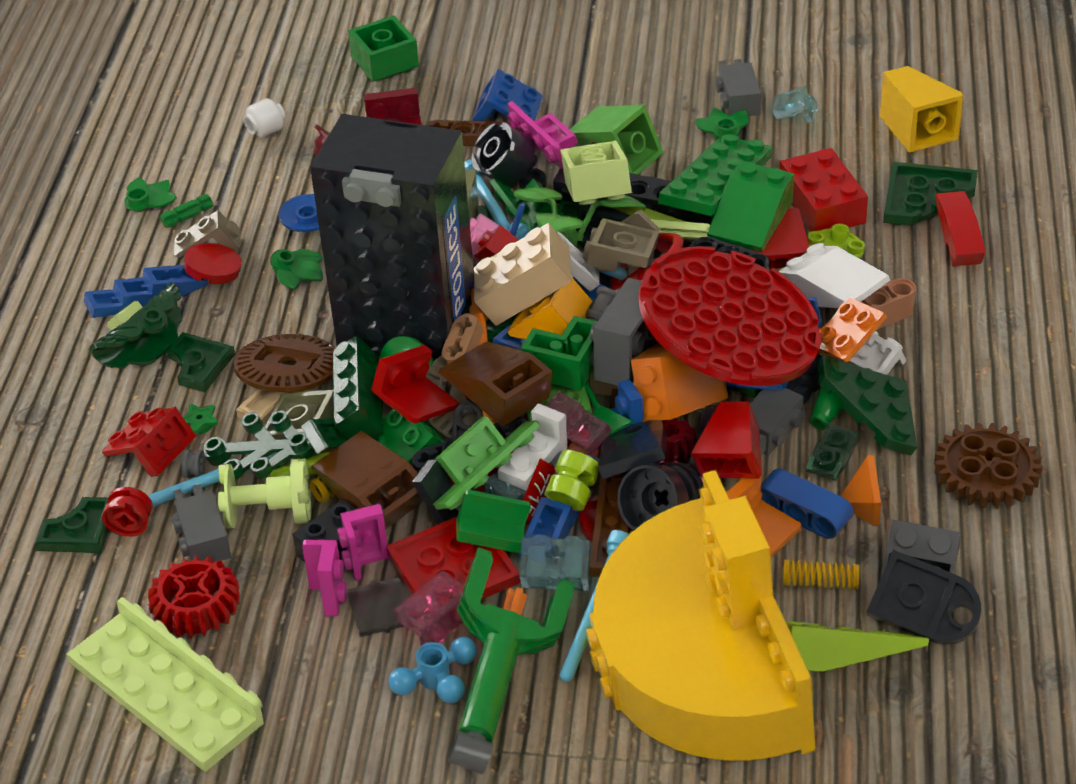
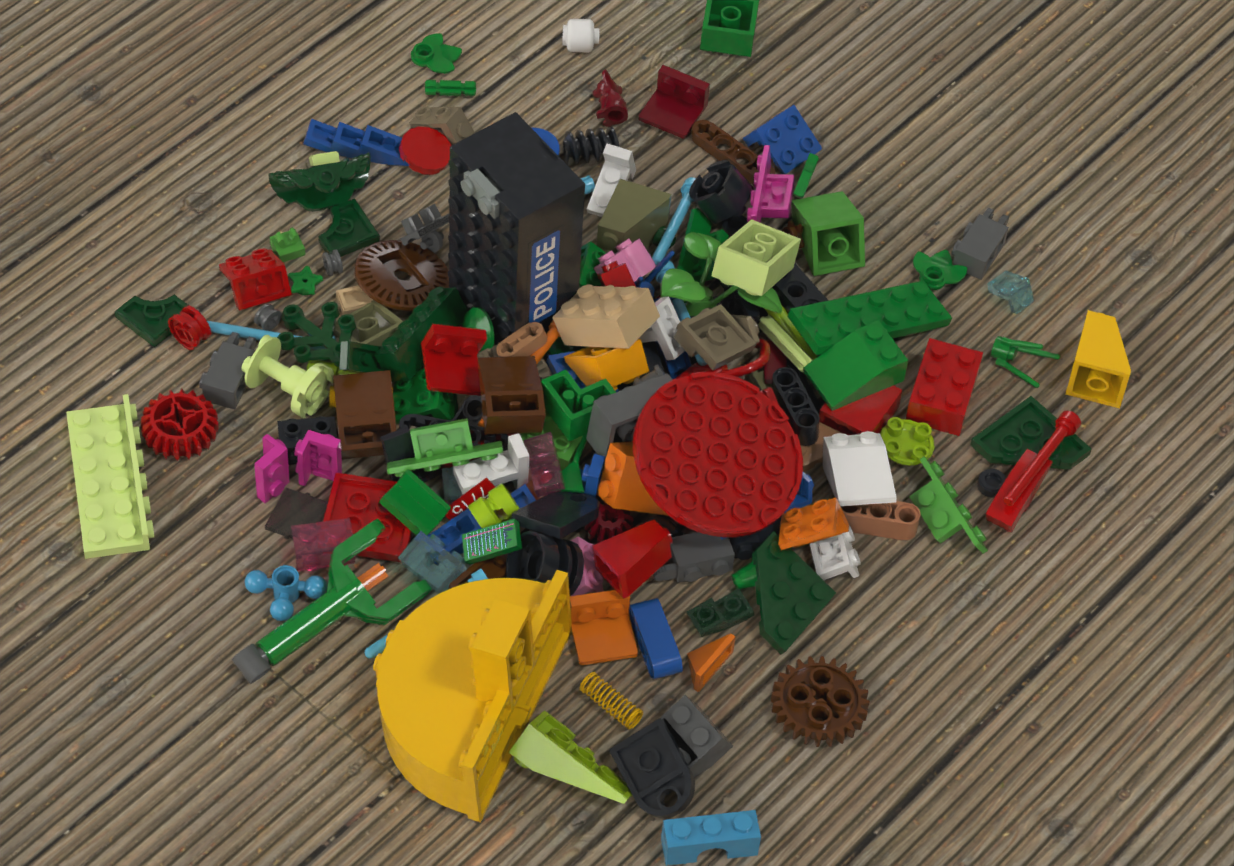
camera: 30 degrees right, 10 degrees up
(153, 397) = (287, 245): none -> bright green tile
(212, 388) = (332, 262): none -> dark grey bush
(273, 312) = (430, 237): none -> dark grey hips
(558, 109) = (806, 176): none -> green tile
(598, 504) = (491, 541): none -> green tile
(840, 142) = (1006, 349): none -> green plant
(927, 275) = (941, 509): none -> bright green bracket
(929, 238) = (990, 482): none -> black tile
(947, 161) = (1066, 425): none -> red piece
(1039, 609) = (689, 836): none -> dark azure arch

